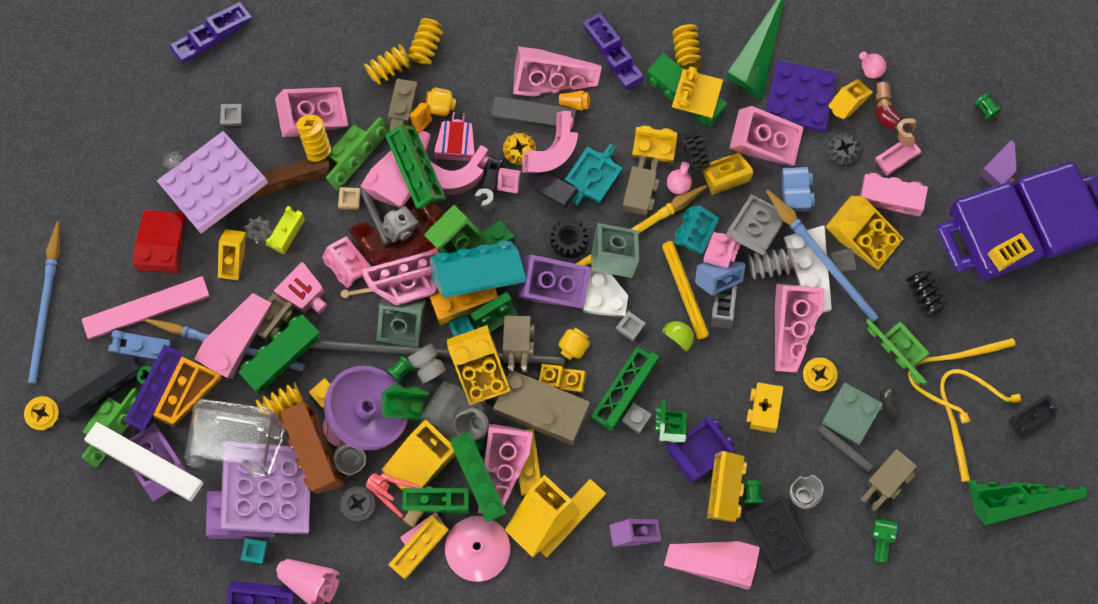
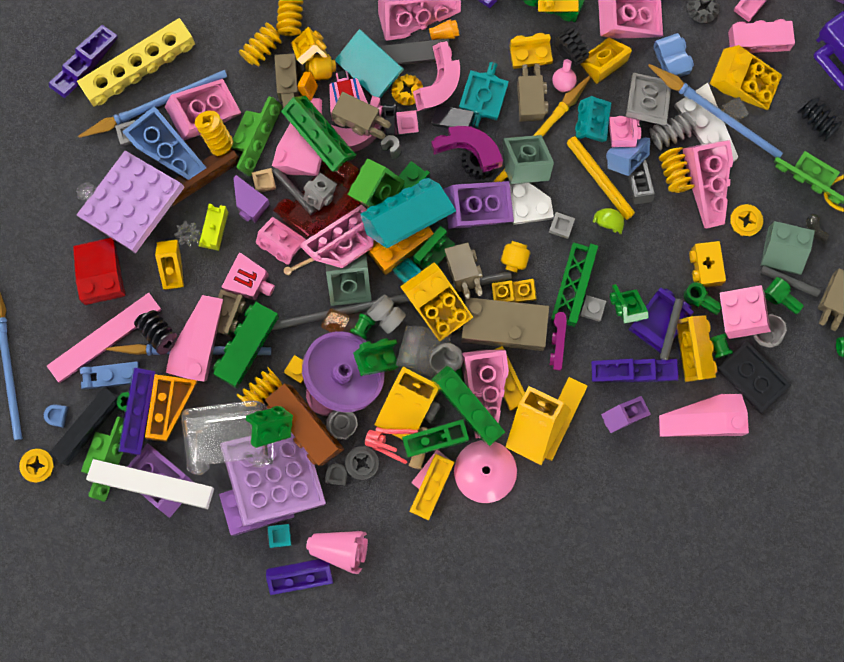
camera: 20 degrees left, 5 degrees up
(75, 370) = (56, 415): none -> medium blue tile
(197, 316) = (156, 331): none -> black piece
(216, 100) = (109, 123): none -> medium blue piece
(251, 44) = (125, 62): none -> light yellow brick
(259, 132) = (161, 142): none -> medium blue wedge
(275, 438) = (270, 426): none -> green bracket
(327, 214) = (249, 201): none -> medium lavender slope
(329, 508) = (336, 475): none -> dark grey tile
(374, 356) = (335, 321): none -> clear orange plate
(433, 76) = (308, 44): none -> yellow bracket
(443, 474) = (433, 412): none -> dark grey tile
(459, 161) = (358, 116): none -> dark tan hinge
(488, 113) = (369, 64): none -> tile
(565, 216) = (473, 140): none -> magenta arch
(591, 439) = (558, 339): none -> magenta hinge
(658, 492) = (635, 370): none -> dark purple slope
(705, 460) = (671, 329): none -> dark grey bar
(749, 441) = (703, 300): none -> green axle
(761, 304) = (674, 170): none -> yellow piece
(786, 465) = (745, 312): none -> bright pink brick
(829, 456) = (779, 292): none -> green axle

